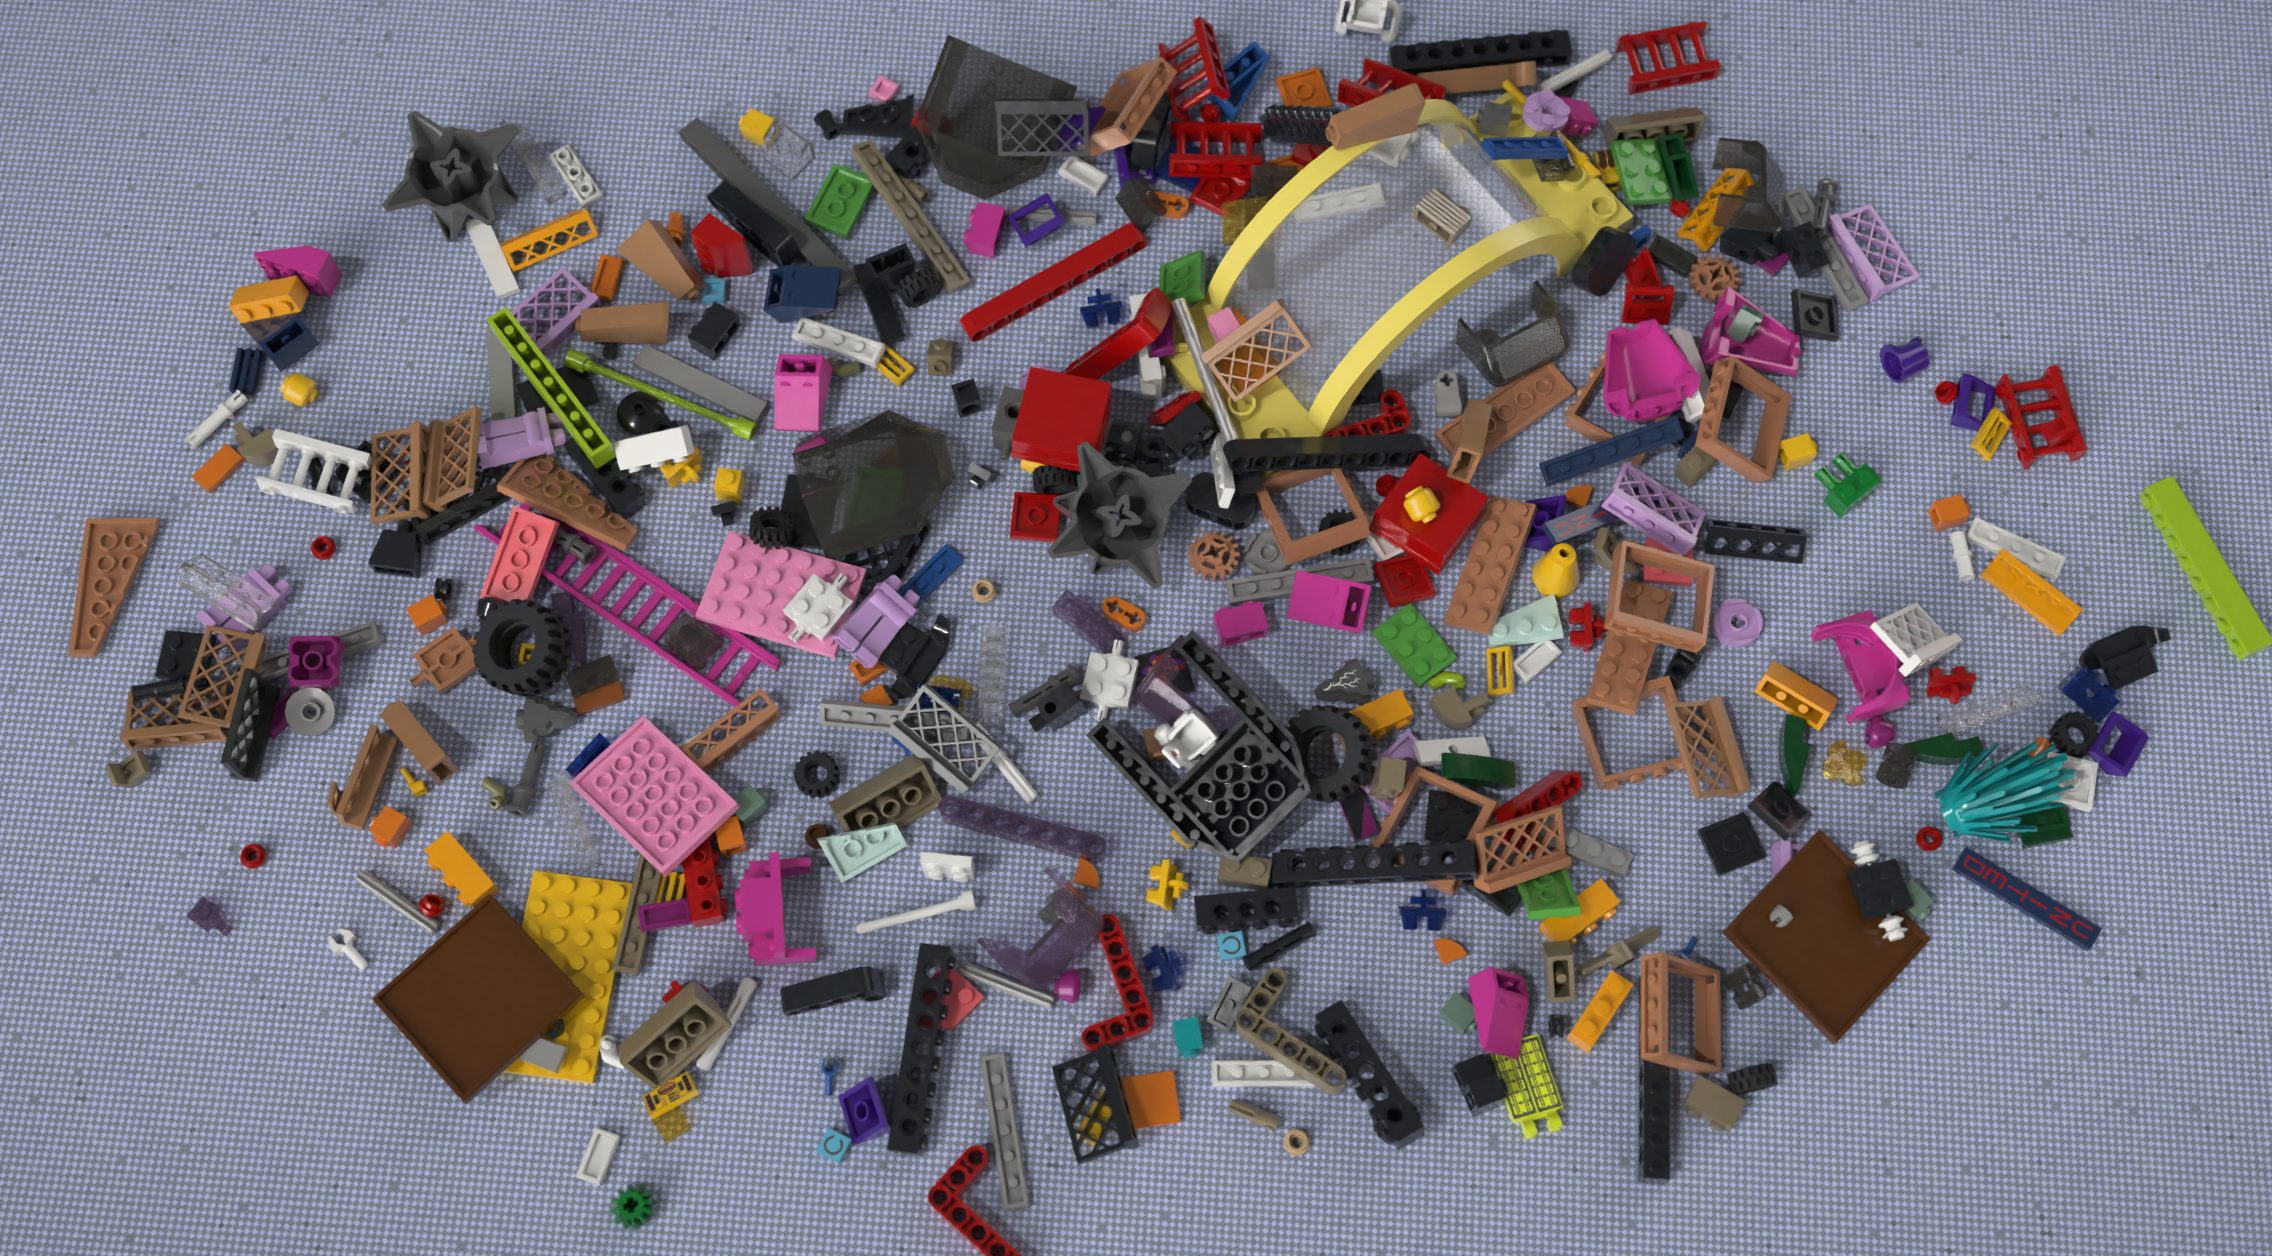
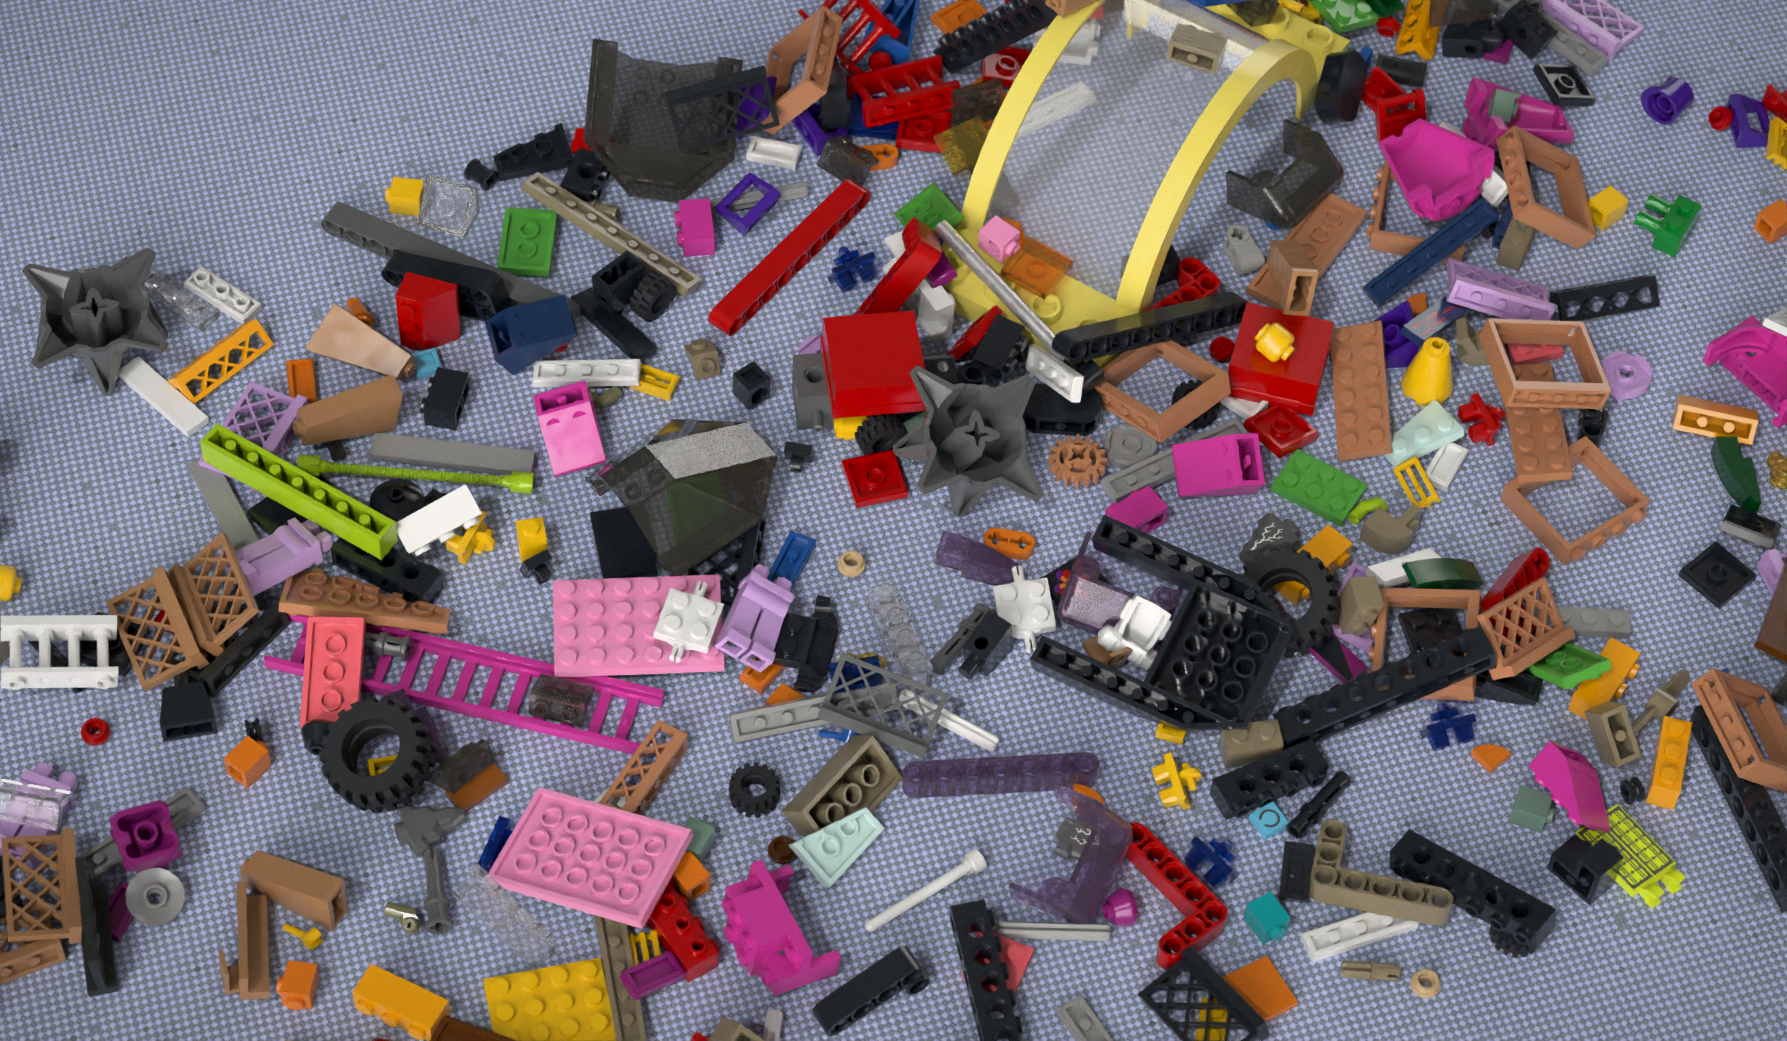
camera: 25 degrees left, 15 degrees down
(445, 661) = (290, 800): nougat plate -> none
(771, 536) = (600, 562): black tyre -> none
(884, 90) = (525, 129): bright pink tile -> none
(945, 865) = (941, 829): white plate -> none
(1244, 333) = (1030, 227): medium nougat fence -> none
(1706, 270) = (1450, 78): nougat gear -> none
(1722, 745) = (1669, 489): medium nougat fence -> none

